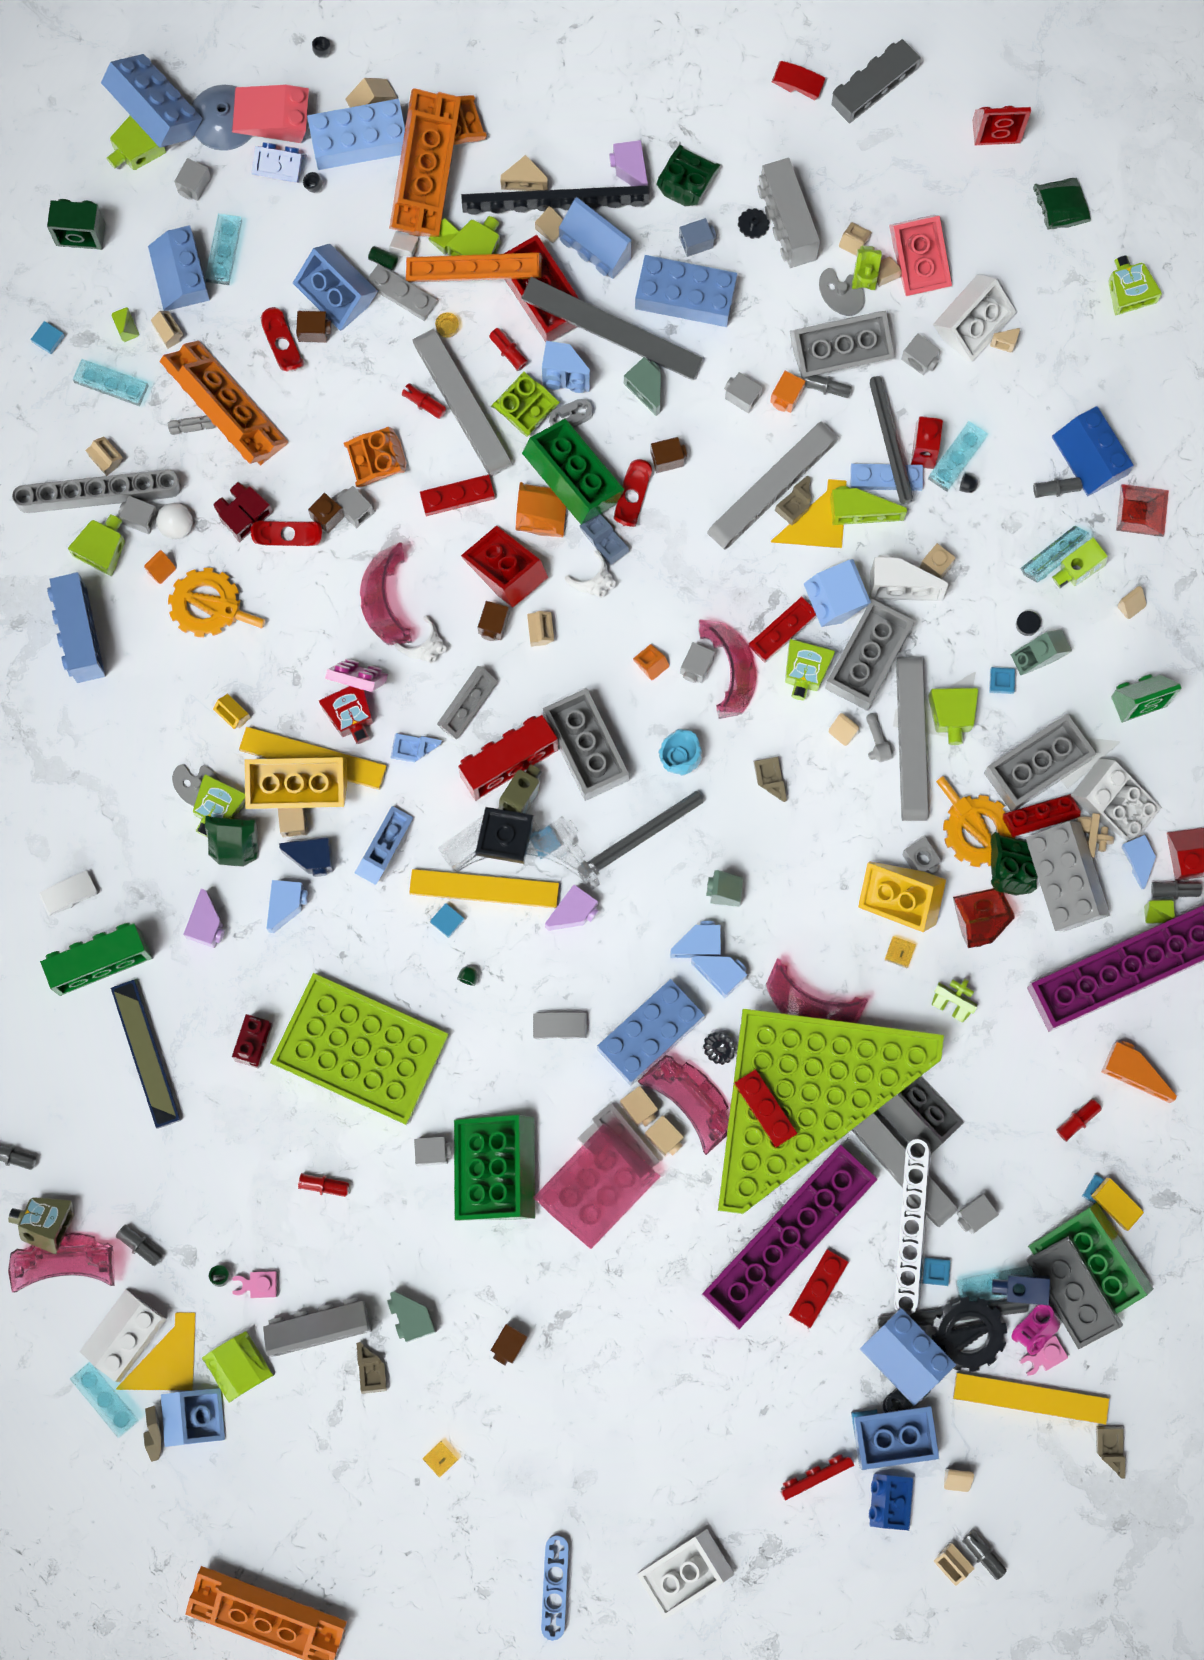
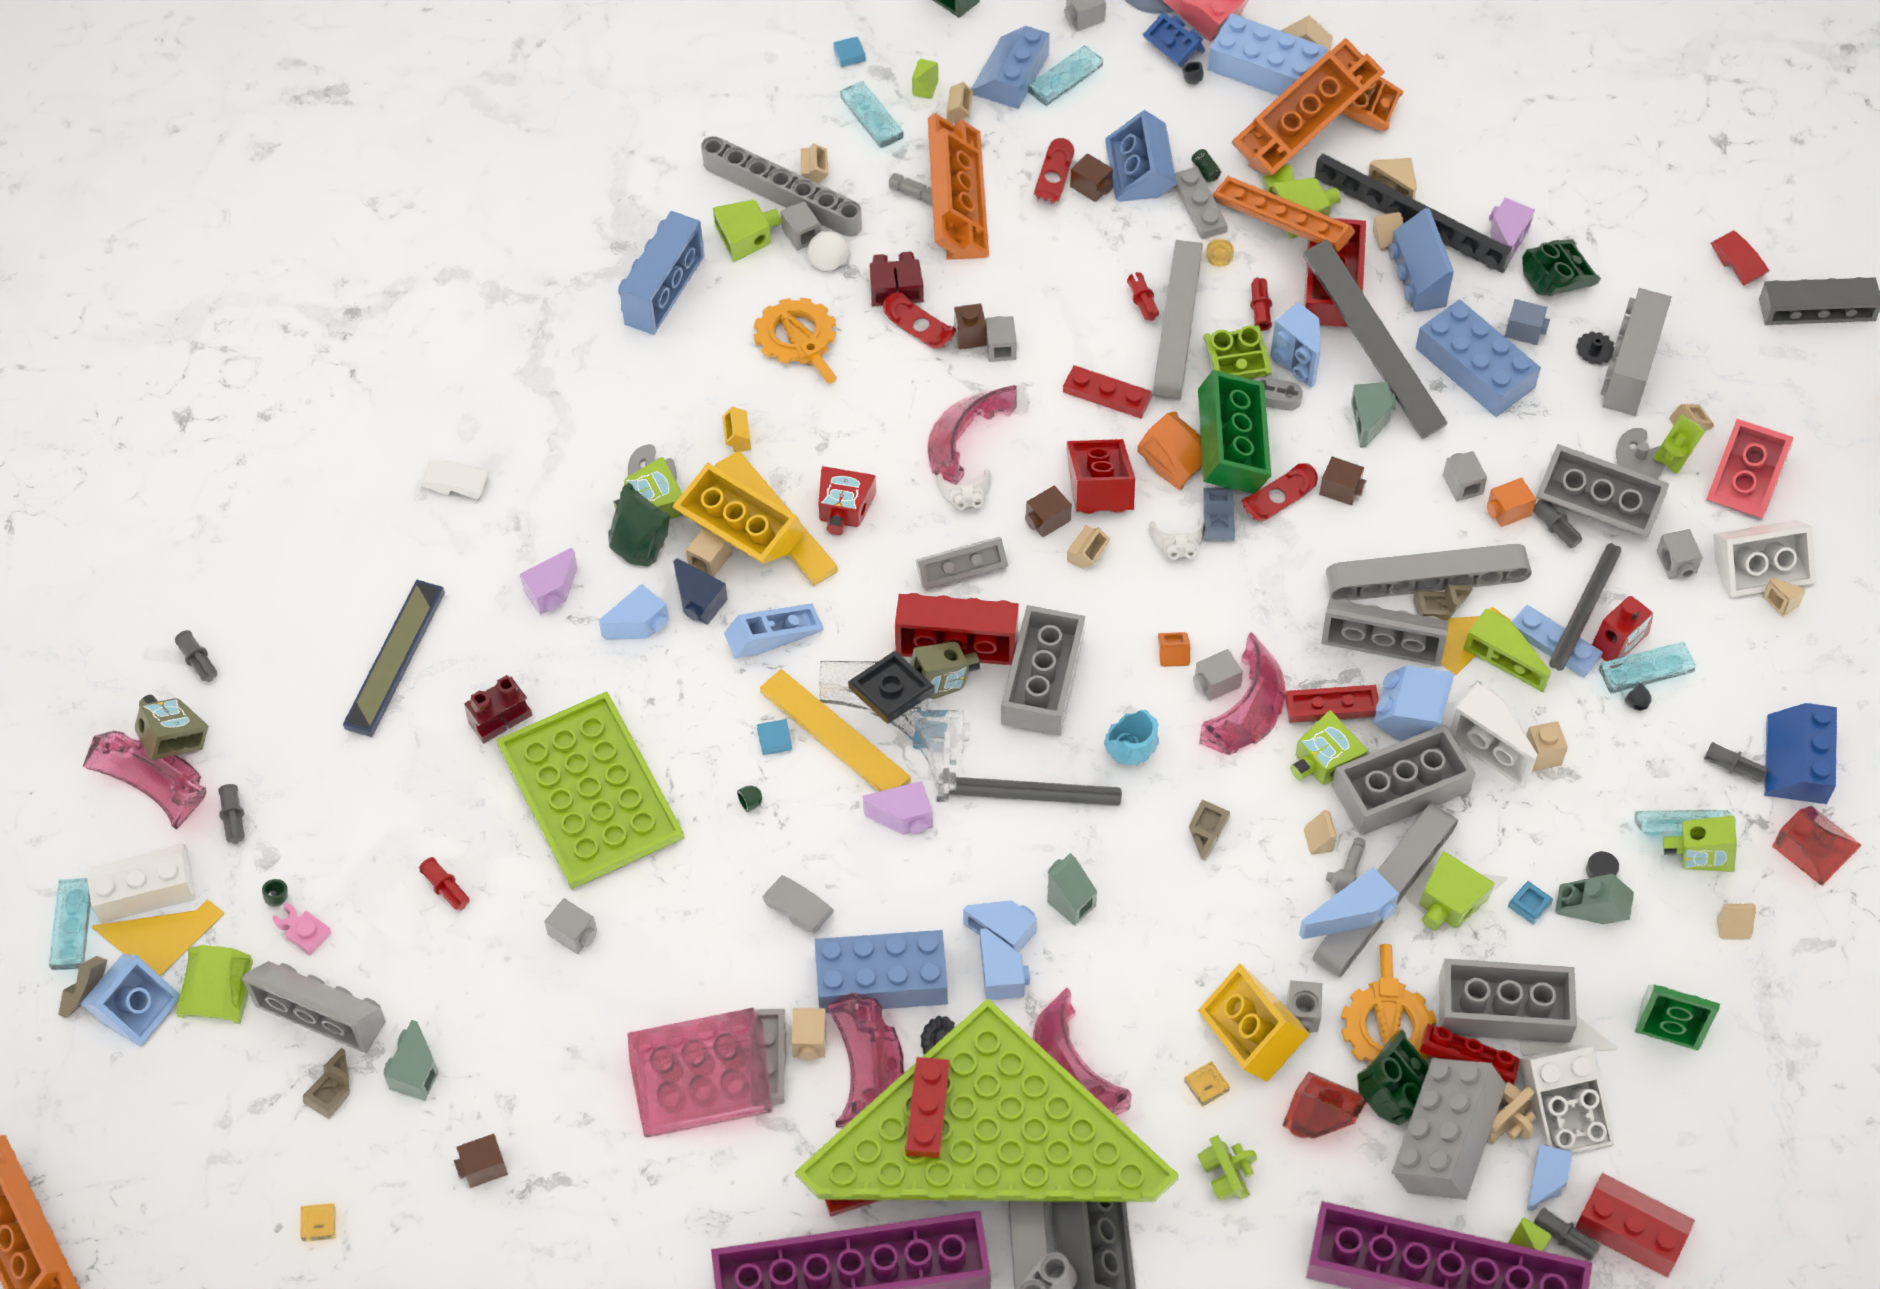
camera: 40 degrees right, 20 degrees down
(95, 959) = (424, 541): green brick -> none
(159, 567) = (781, 277): orange slope -> none
(356, 676) = (875, 462): plate -> none
(376, 456) = (1058, 311): orange slope -> none
(403, 244) = (1234, 166): white slope -> none
(412, 748) = (875, 570): light blue slope -> none
(494, 1168) = (618, 987): green slope -> none
(664, 1137) = (809, 1079): tan brick -> none
(780, 551) = (1384, 632): none -> light grey slope
(888, 271) = (1701, 466): tan slope -> none
(912, 765) = (1354, 907): none -> light blue slope

